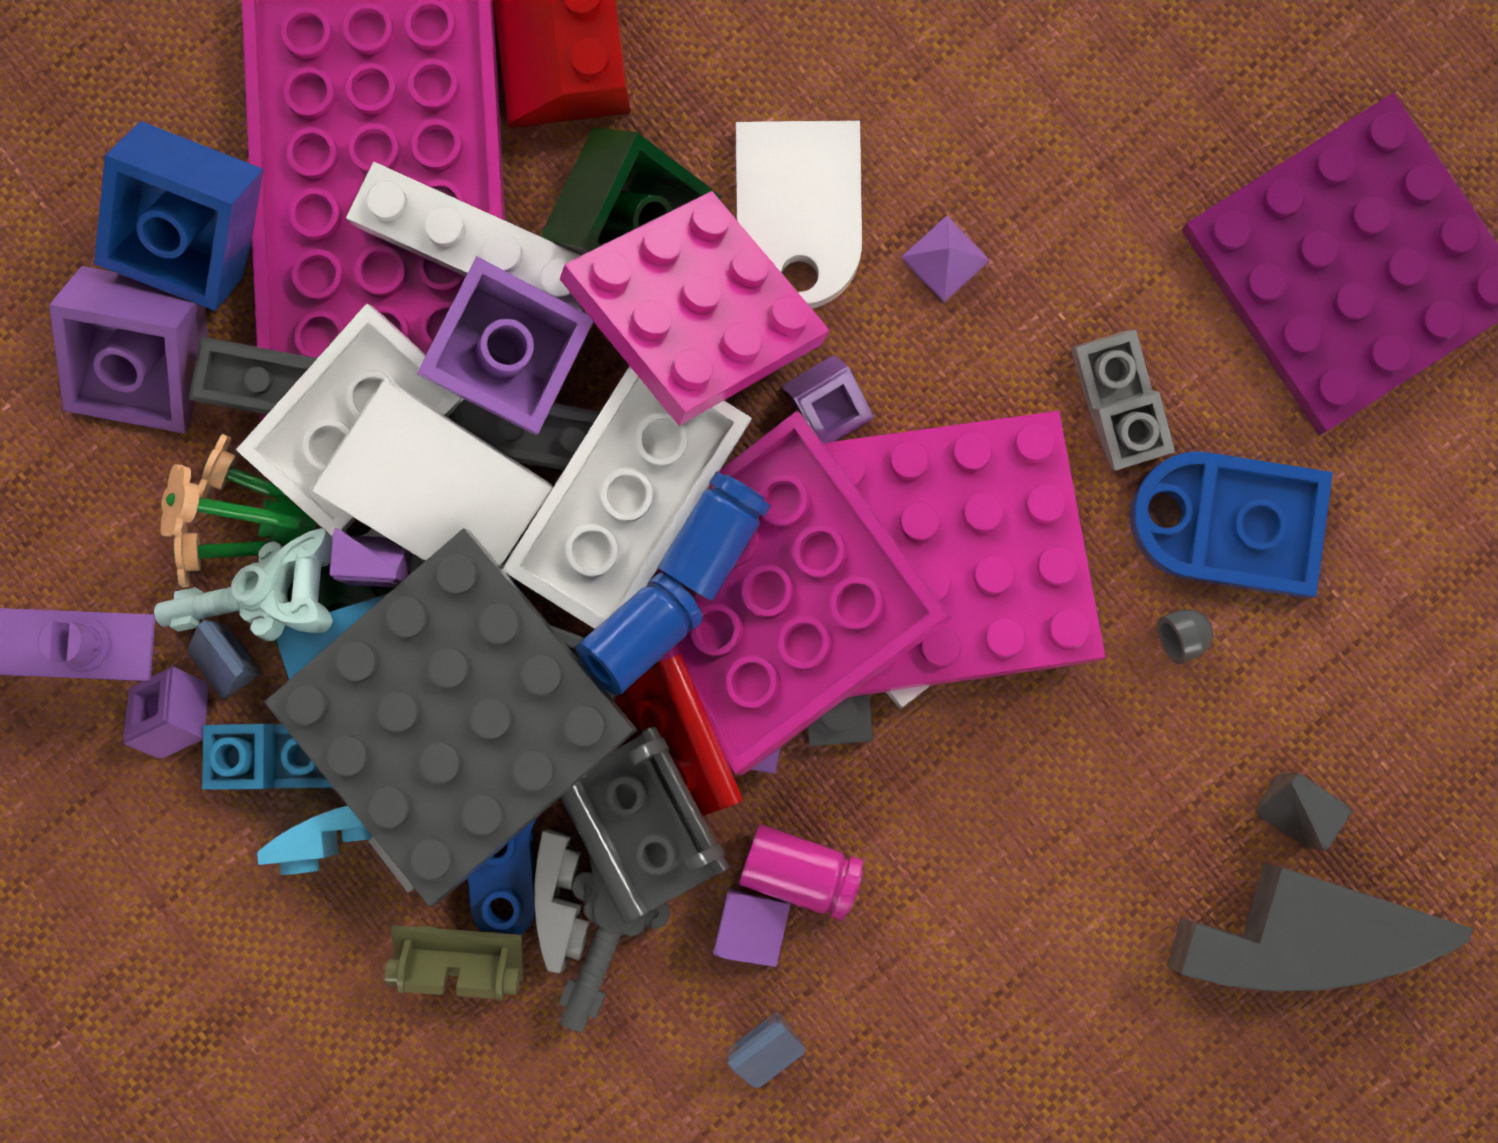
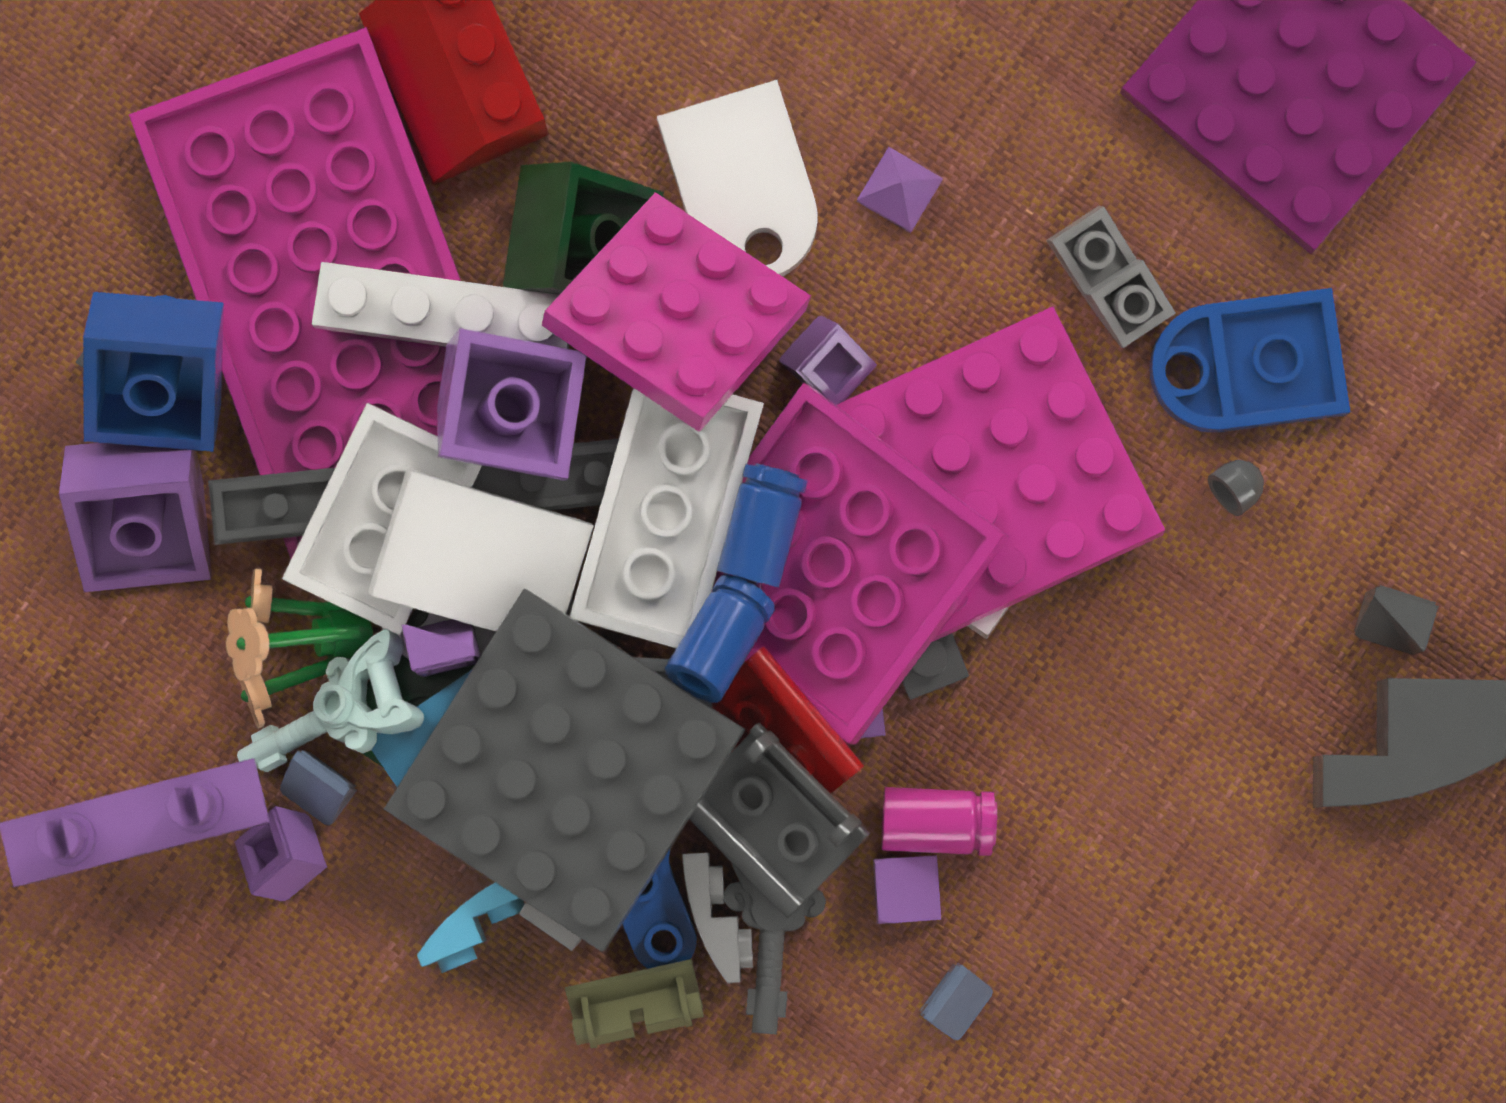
camera: 20 degrees left, 0 degrees up
(256, 759) = (389, 868): dark azure slope -> none

